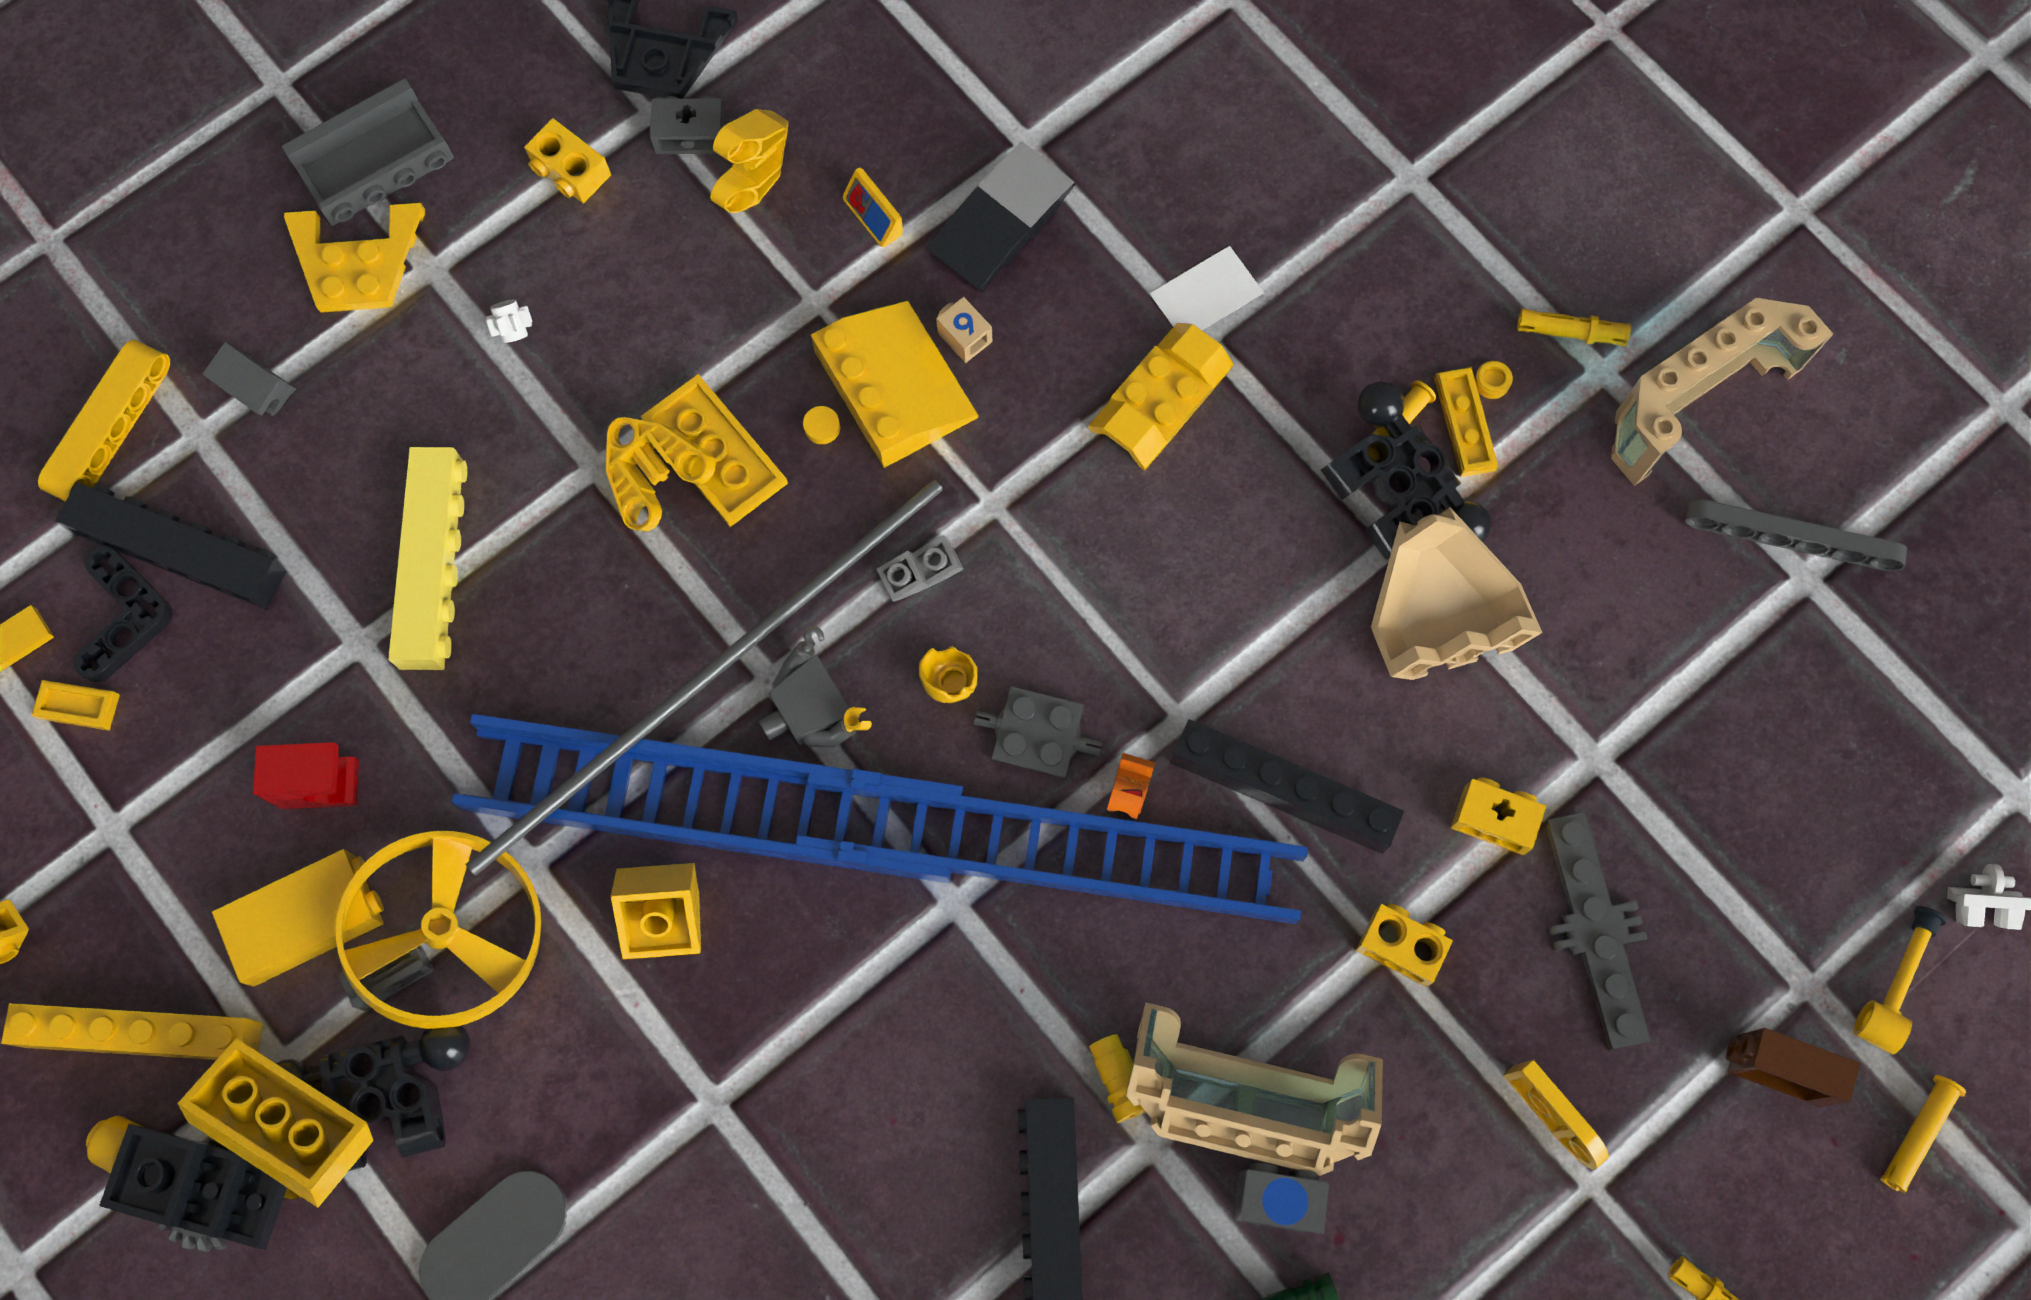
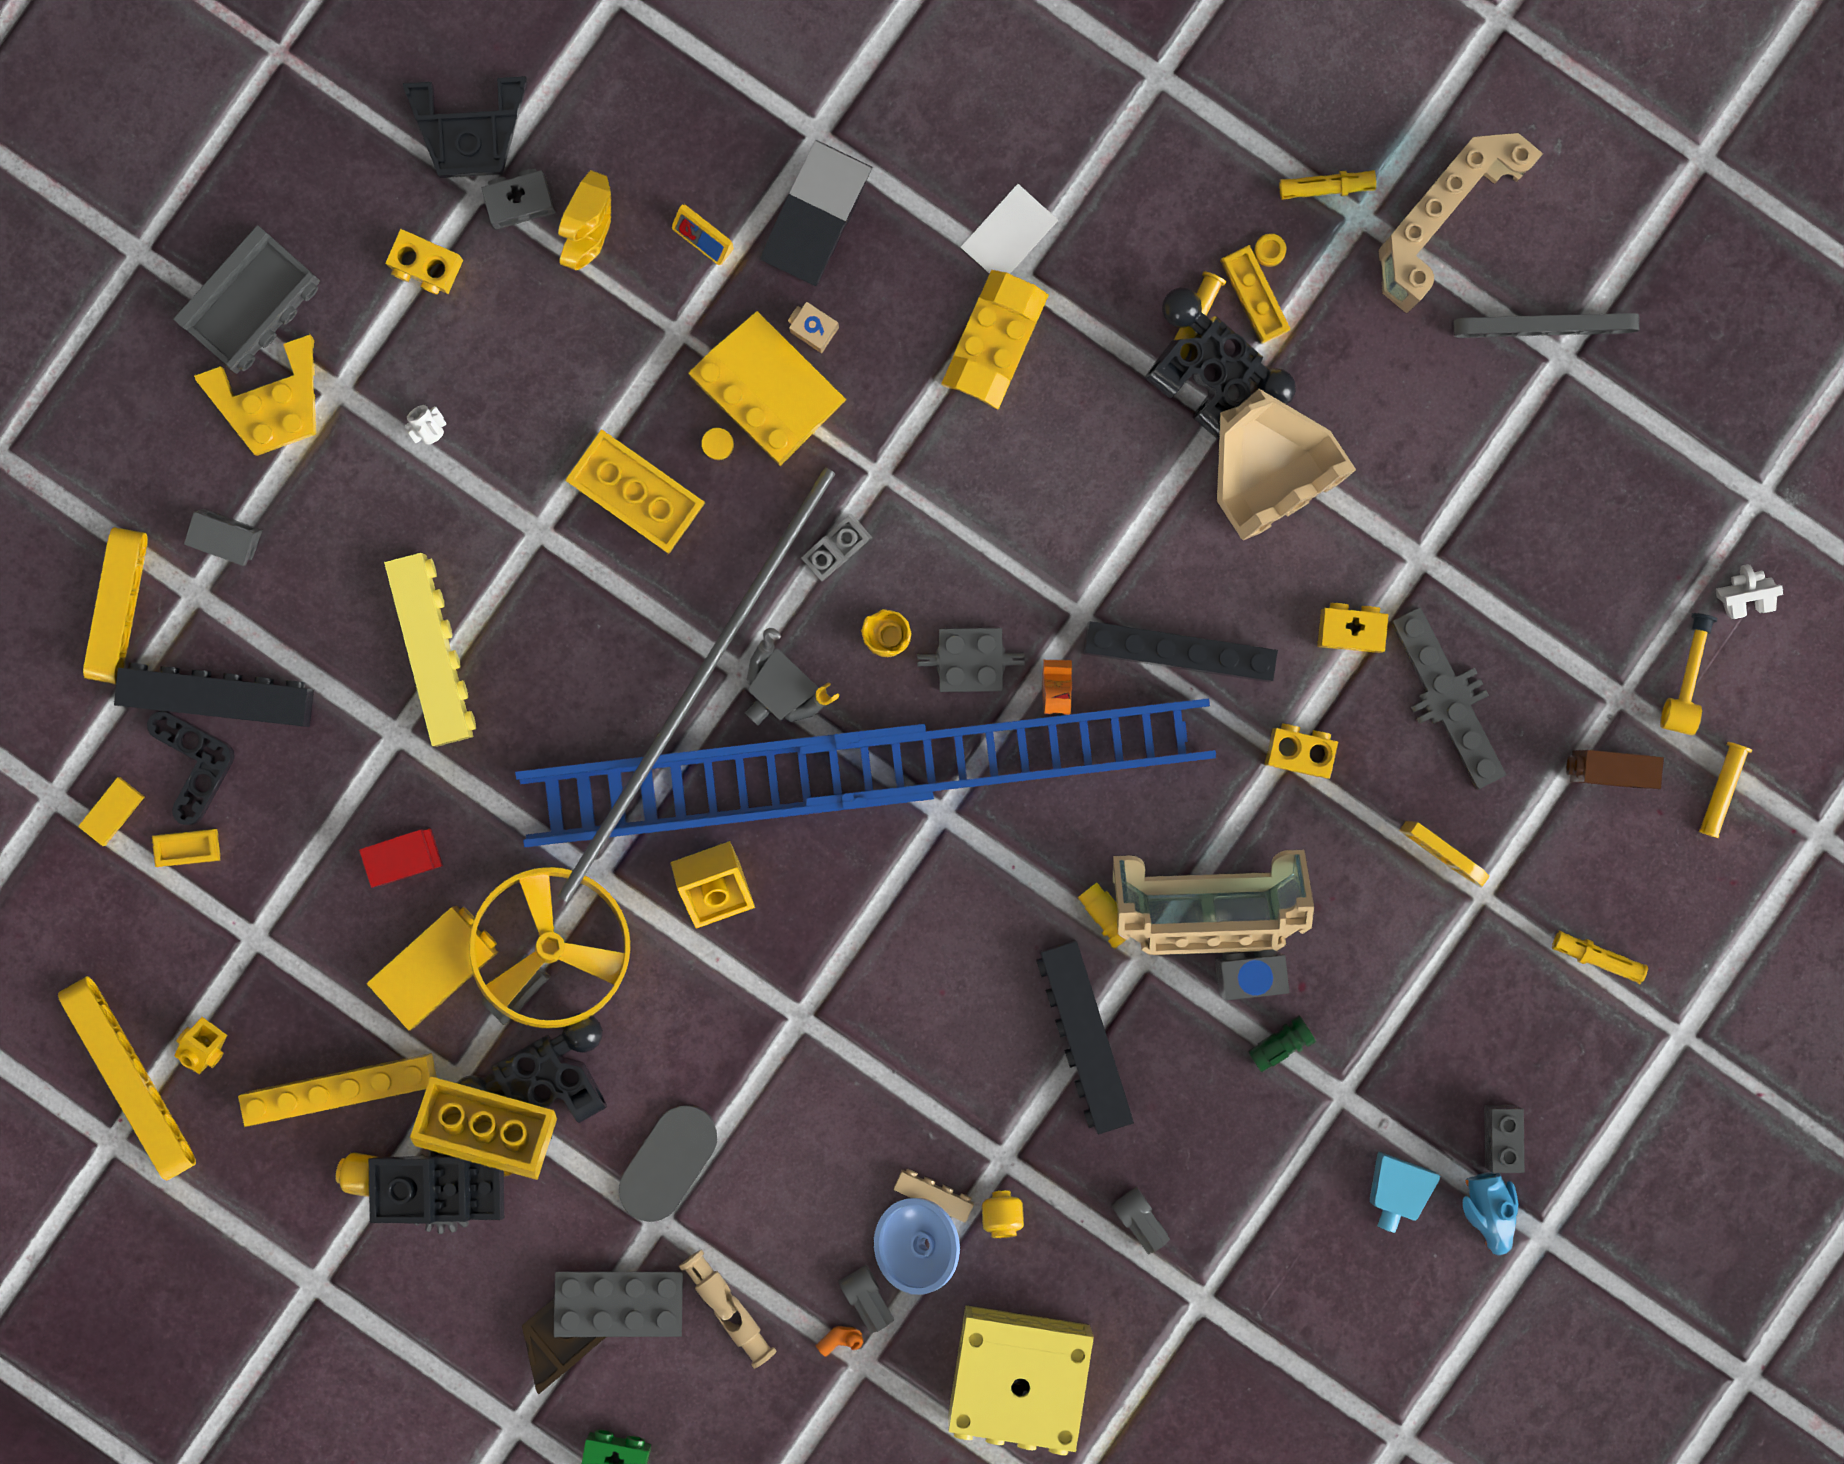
camera: 25 degrees left, 15 degrees up
(629, 484) = (578, 543): yellow connector -> none

